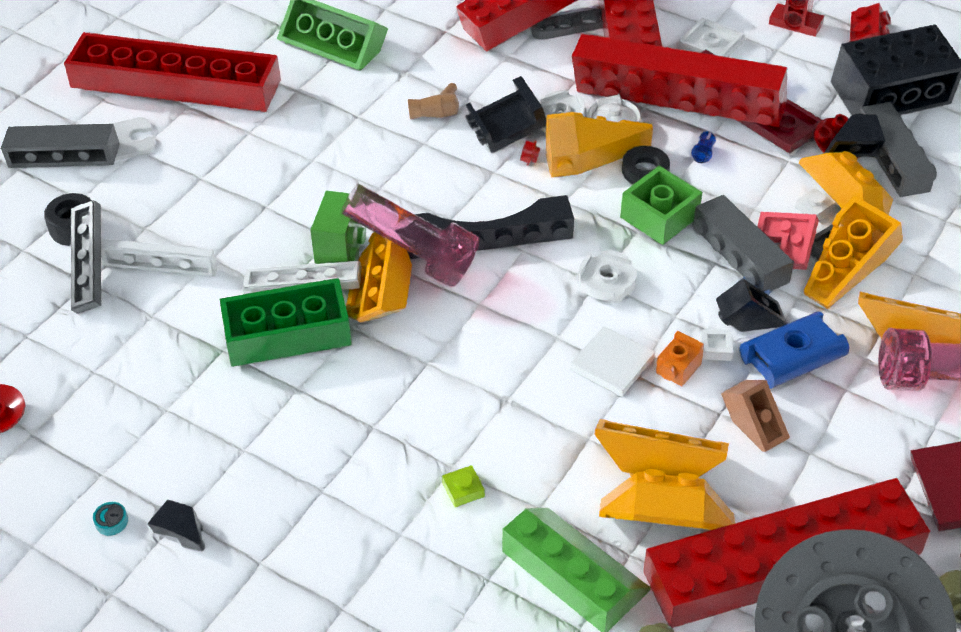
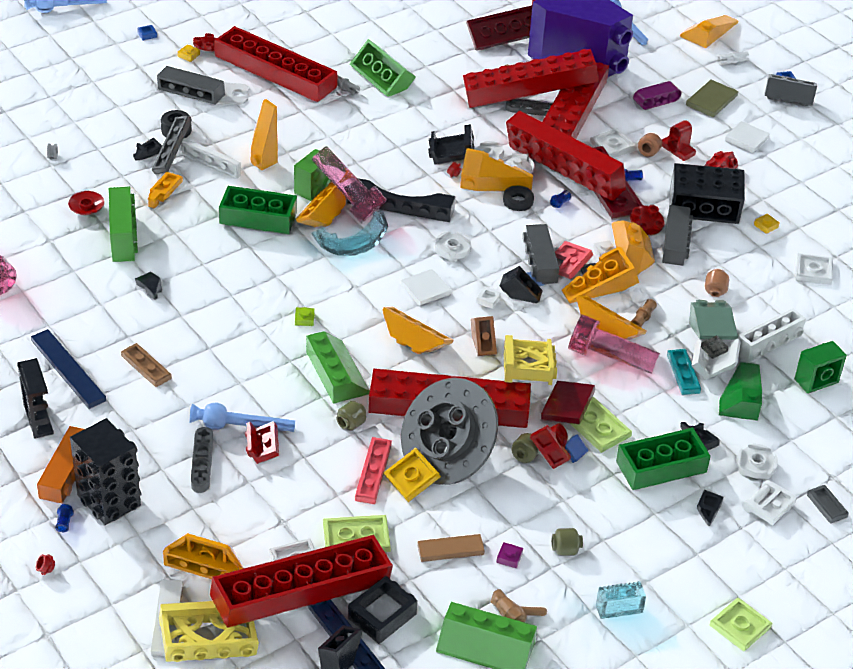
camera: 20 degrees right, 5 degrees down
(27, 94) = (188, 53): none -> yellow plate
(46, 276) = (147, 149): none -> black slope
(47, 70) = (204, 43): none -> red dish
(79, 430) = (122, 224): none -> bright green brick
(109, 337) = (163, 188): none -> light orange hinge
(110, 518) = (118, 271): tile -> none
(233, 195) = (265, 137): none -> light orange wedge
(278, 277) = (304, 197): white tile -> none
(296, 72) = (345, 84): none -> light grey axle
(437, 106) = (417, 128): medium nougat piece -> none
(466, 319) = (357, 243): none -> clear light blue windscreen
(660, 204) = (507, 218): bright green brick -> none
(667, 500) = (403, 354): light orange wedge -> none
(680, 358) = (462, 297): orange brick -> none
(763, 27) = (649, 144): none -> nougat head
(794, 349) = (530, 313): blue piece -> none
(859, 136) = (652, 219): black slope -> none
(897, 453) = (515, 368): none -> light yellow fence
(942, 286) = (644, 313): none -> medium nougat pin

